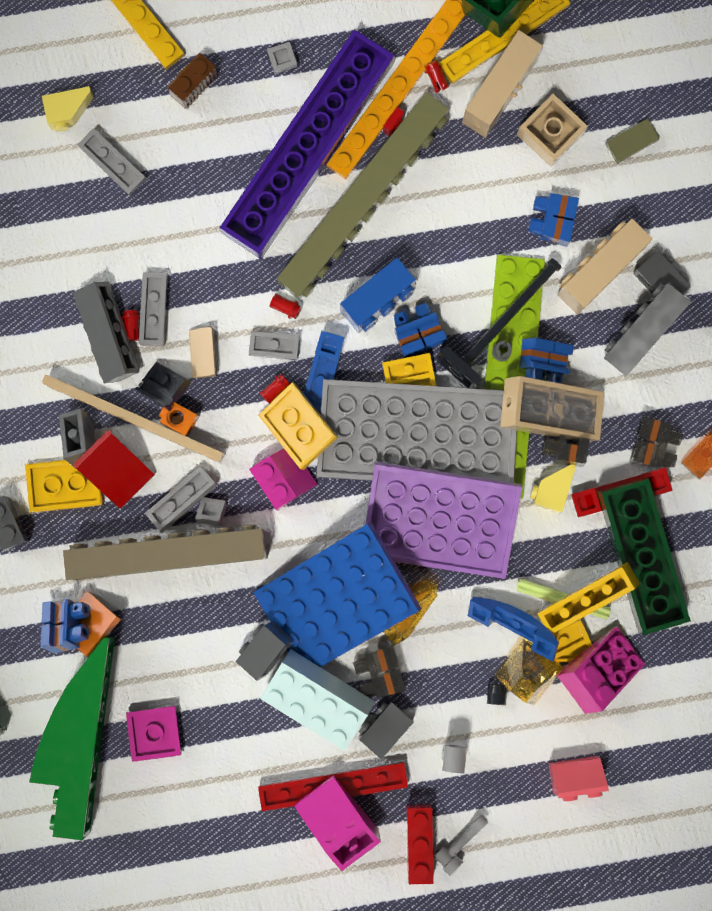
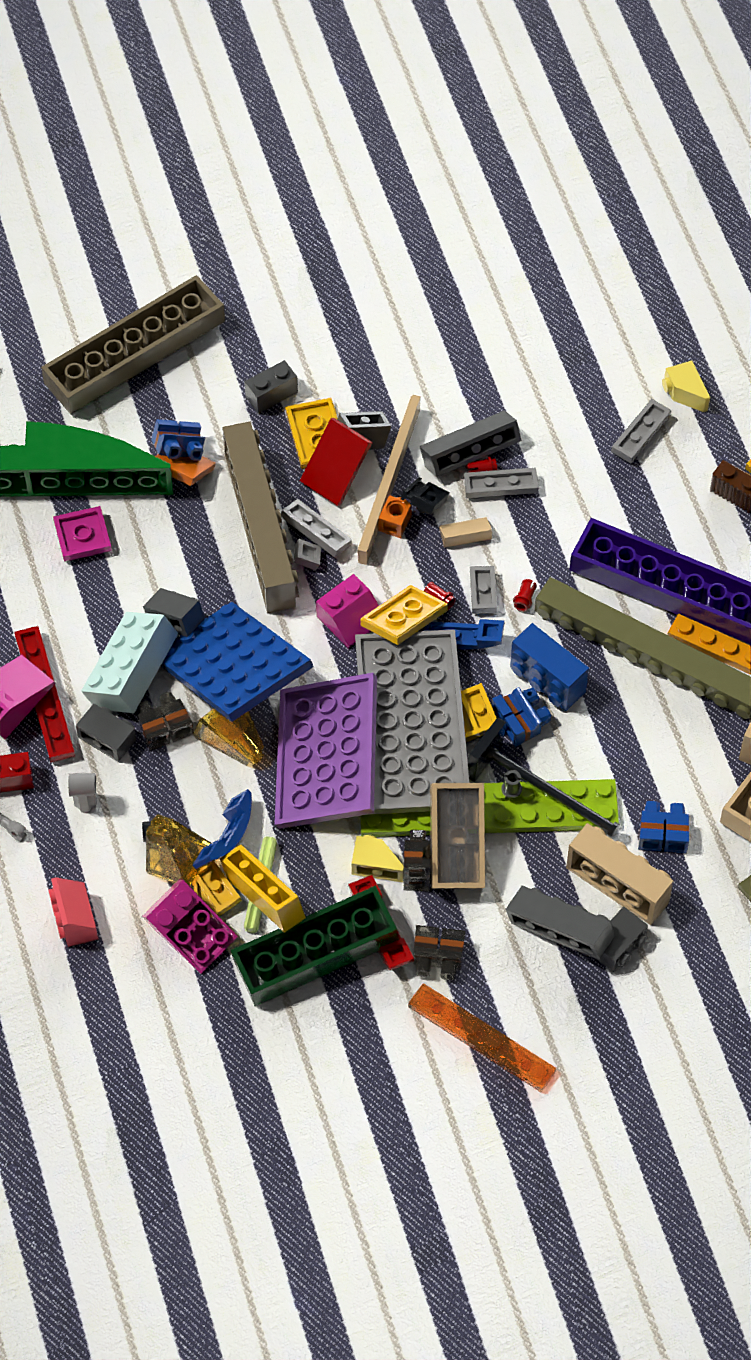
camera: 85 degrees right, 25 degrees down
(393, 122) = (736, 662): red tile -> none
(546, 357) = (509, 842): blue hips -> none

